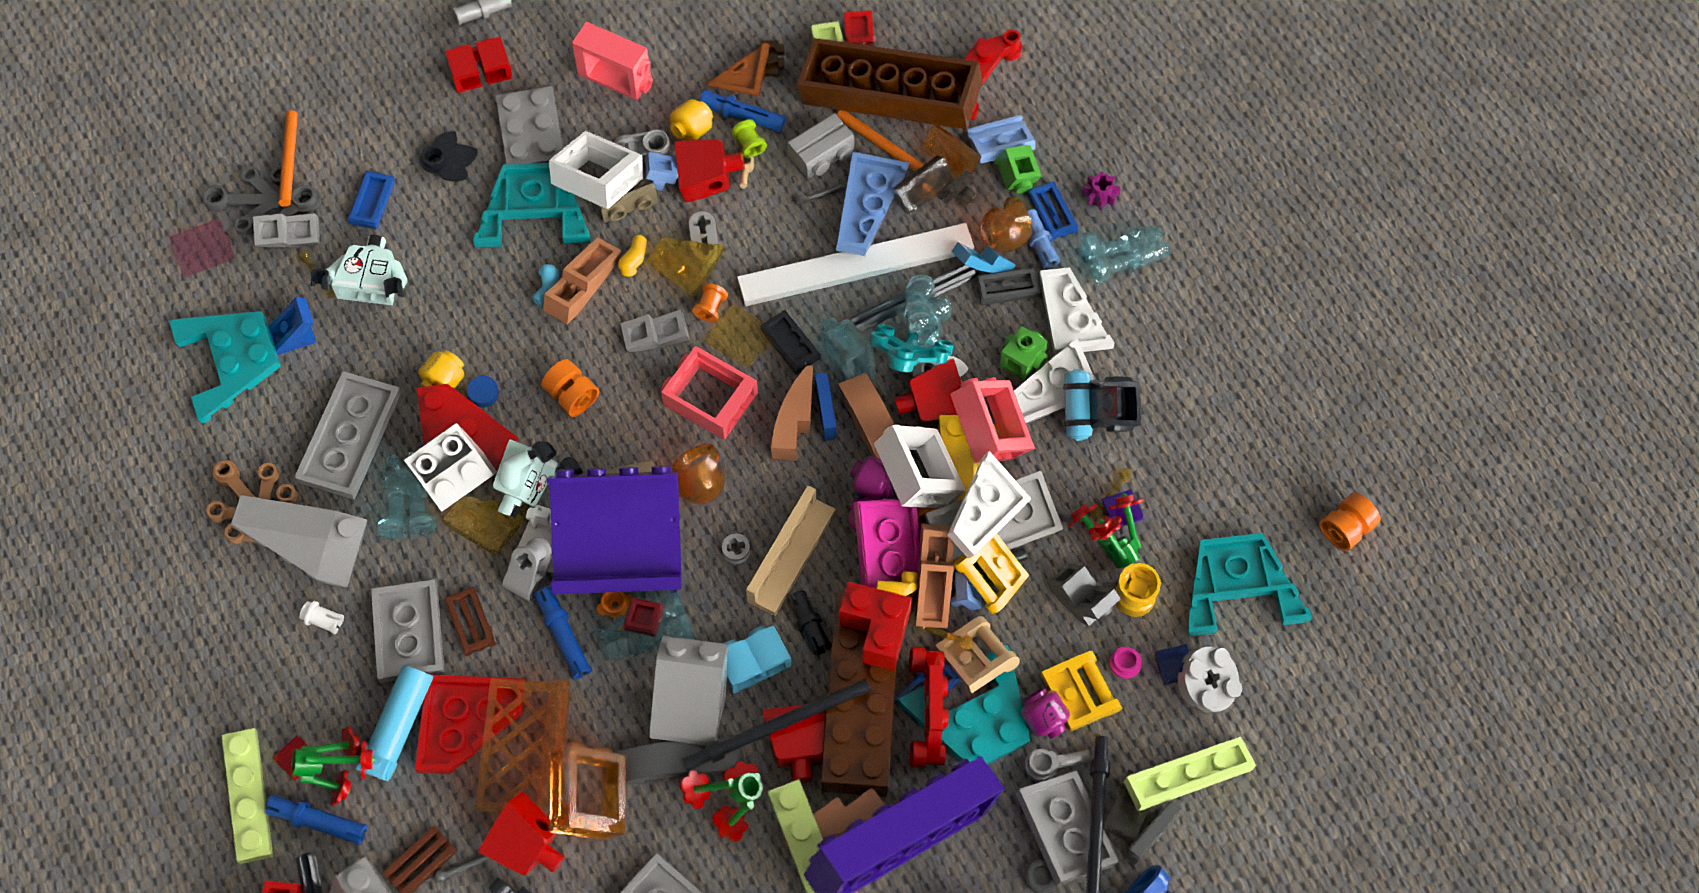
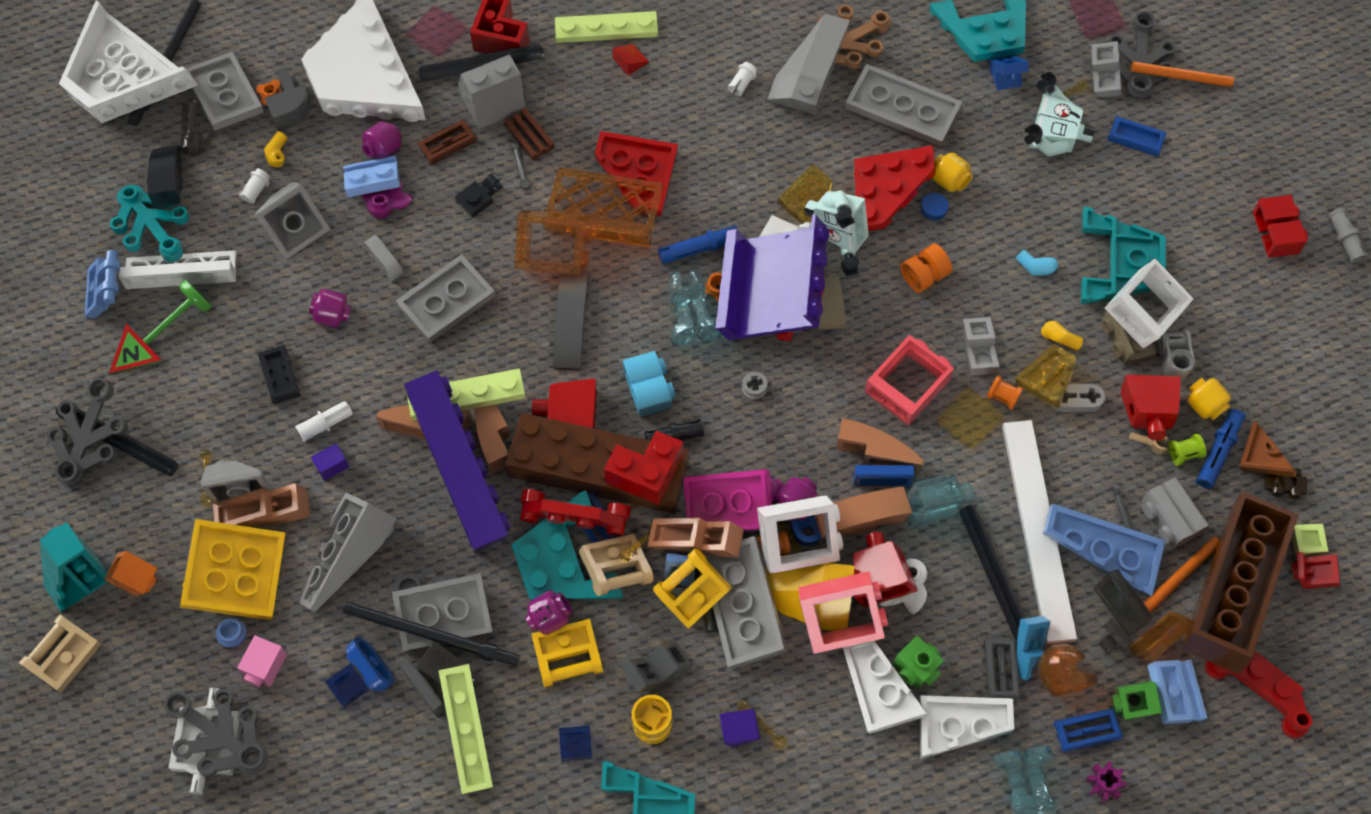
camera: 100 degrees right, 0 degrees up
(303, 815) = (581, 59): blue pin -> none
(310, 760) = (612, 55): plant -> none
(397, 720) = (641, 119): medium azure piece -> none
(398, 483) = (857, 141): clear light blue piece -> none
(407, 629) = (720, 136): light grey plate -> none
(450, 466) = (853, 164): white slope -> none
(452, 157) = (1178, 201): black plate -> none
(479, 644) = (705, 191): copper tile -> none
(522, 838) = (525, 191): red torso -> none
(528, 568) = (755, 220): light grey piece -> none
(529, 125) = (1210, 265): light grey plate -> none
(580, 280) = (1039, 290): nougat slope -> none
(612, 61) = (1275, 331): coral window -> none
(643, 617) = (694, 296): dark red tile -> none
(661, 169) = (1151, 361): medium blue tile -> none
(689, 690) = (618, 320): light grey slope -> none
(702, 481) = (821, 353): clear orange helmet -> none
(716, 750) = (565, 340): black bar -> none
(743, 787) = (517, 349): plant -> none
(789, 552) = (739, 425): tan fence -> none
(790, 342) = (957, 455): black plate -> none
(905, 587) = (684, 501): yellow arm -> none
(906, 354) = (902, 524): teal plant -> none
(924, 314) = (955, 565): clear light blue piece -> none
(987, 506) = (746, 584): white wing -> none
(1041, 241) = (1053, 708): medium blue pin -> none
(1042, 764) = (506, 606): light grey plate -> none
(1100, 404) = (850, 724): black piece -> none
(1120, 550) = (696, 714): plant -> none
(1125, 662) = (587, 699): dark pink plate -> none
(1224, 674) = (534, 766): plate -> none

